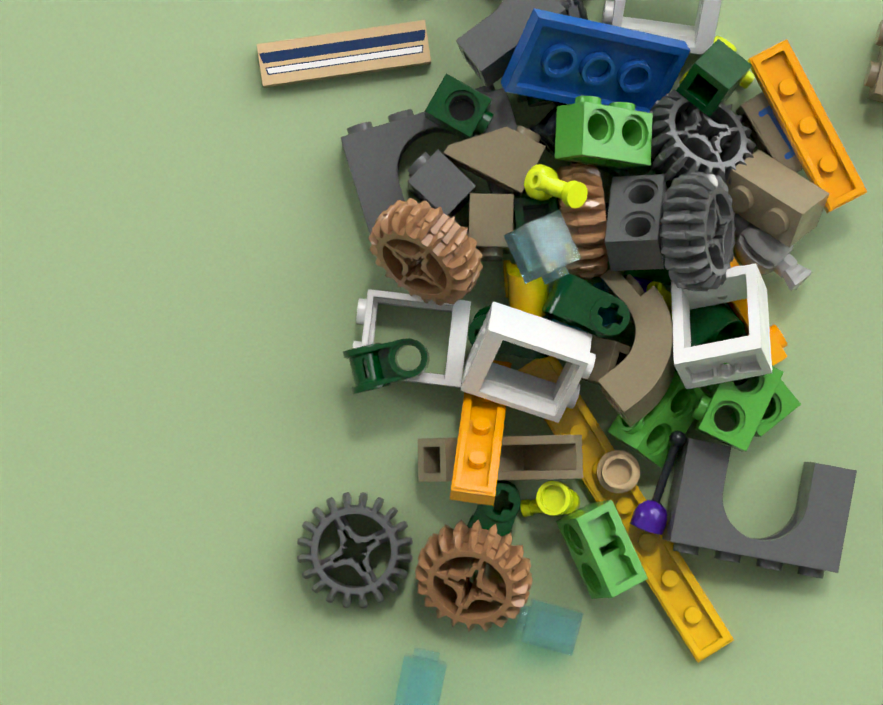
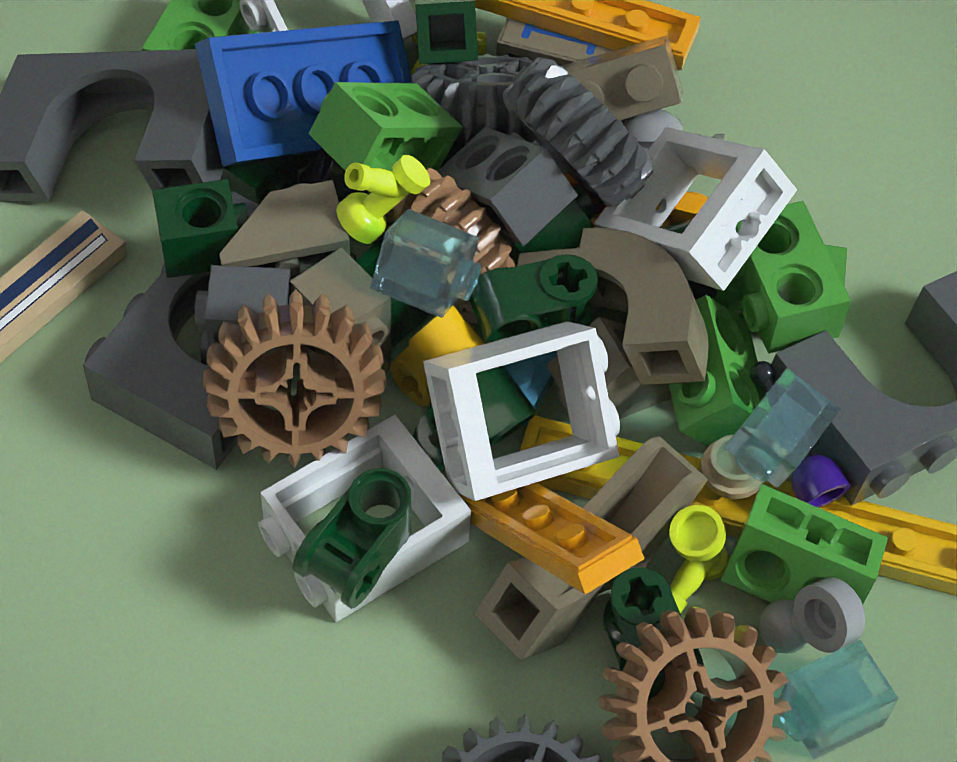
camera: 45 degrees left, 30 degrees down
(578, 585) = (822, 614): none -> light grey plate
(643, 484) = (781, 429): none -> clear light blue brick

